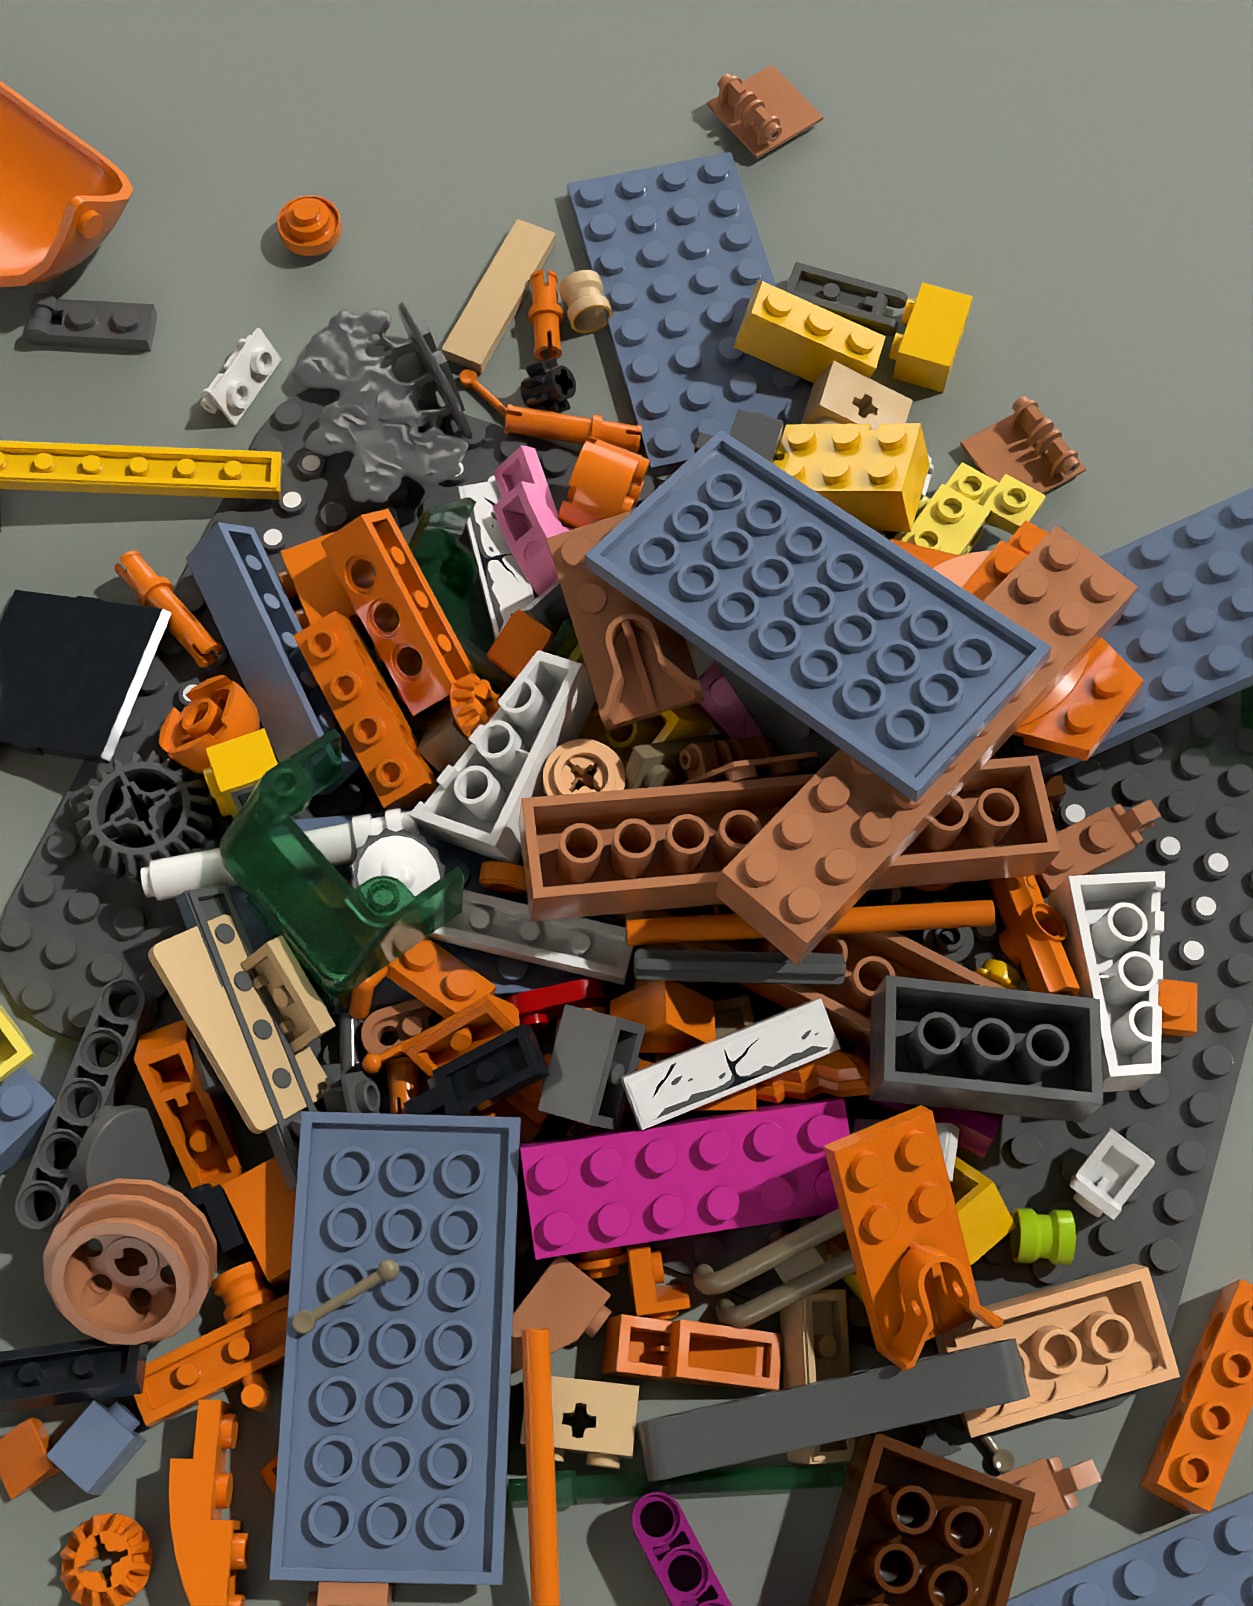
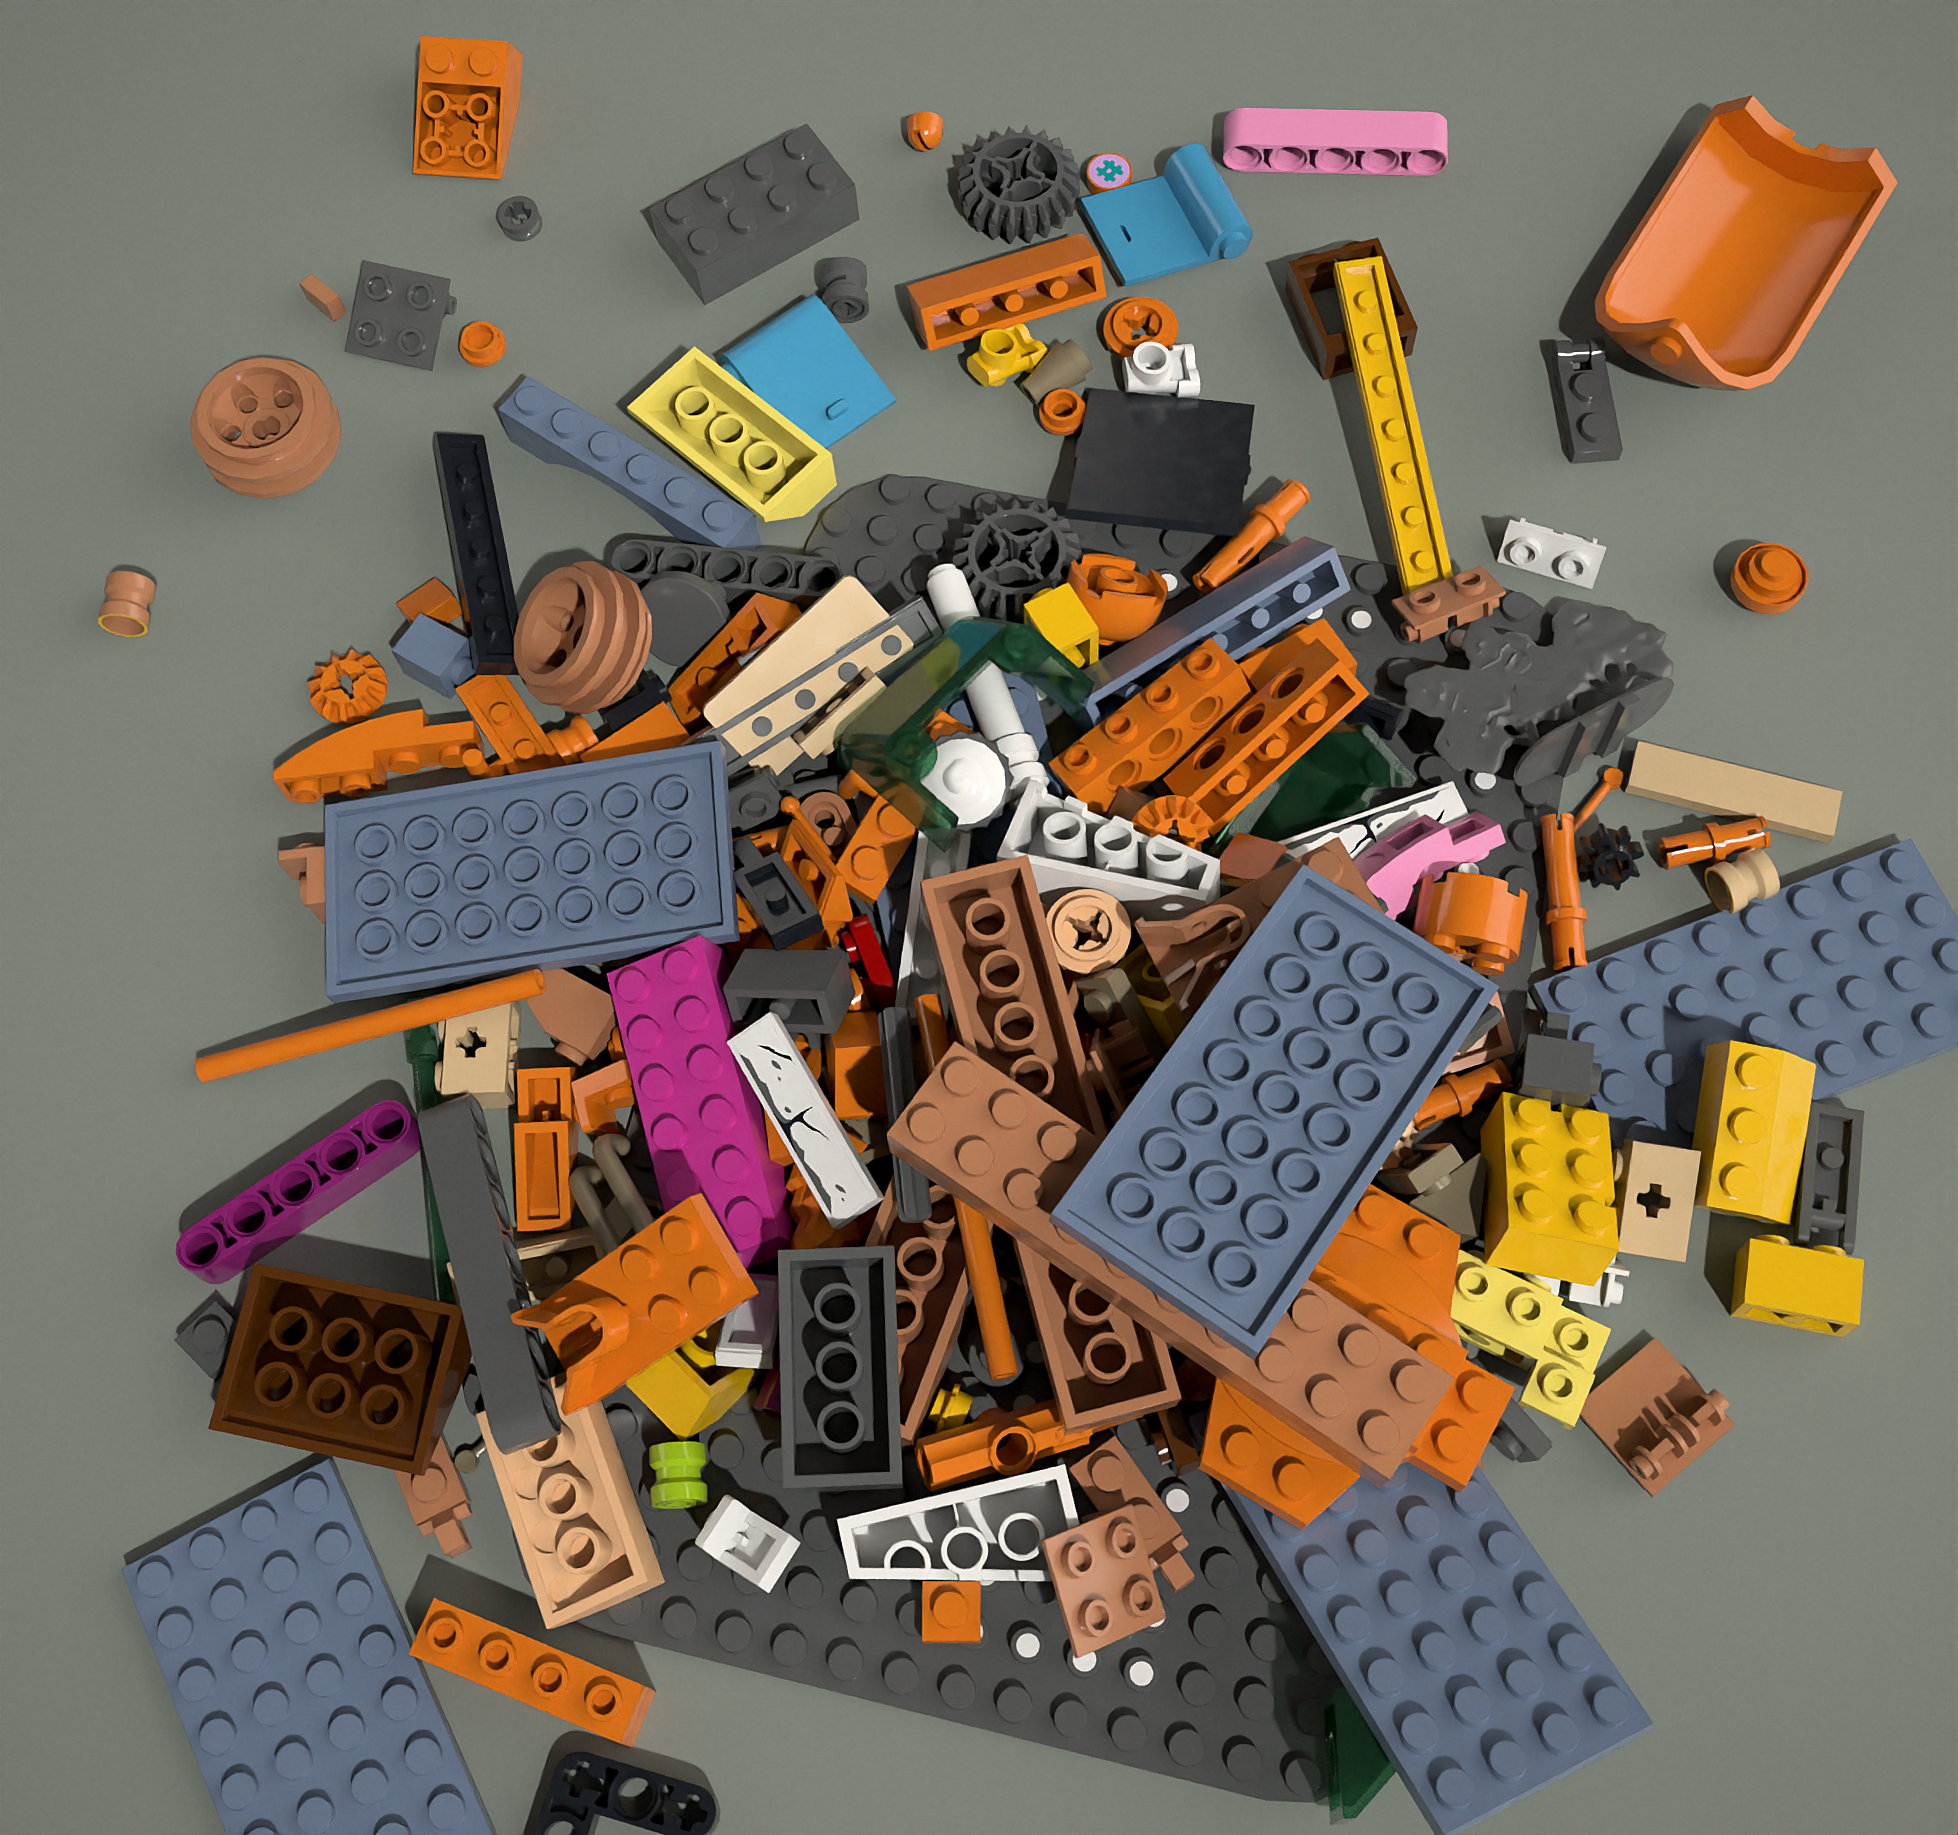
camera: 90 degrees right, 0 degrees up
(281, 457) = (1463, 596): none -> nougat hinge
(306, 1320) = (535, 785): dark tan hinge -> none
(1159, 863) = (1103, 1579): none -> nougat hinge

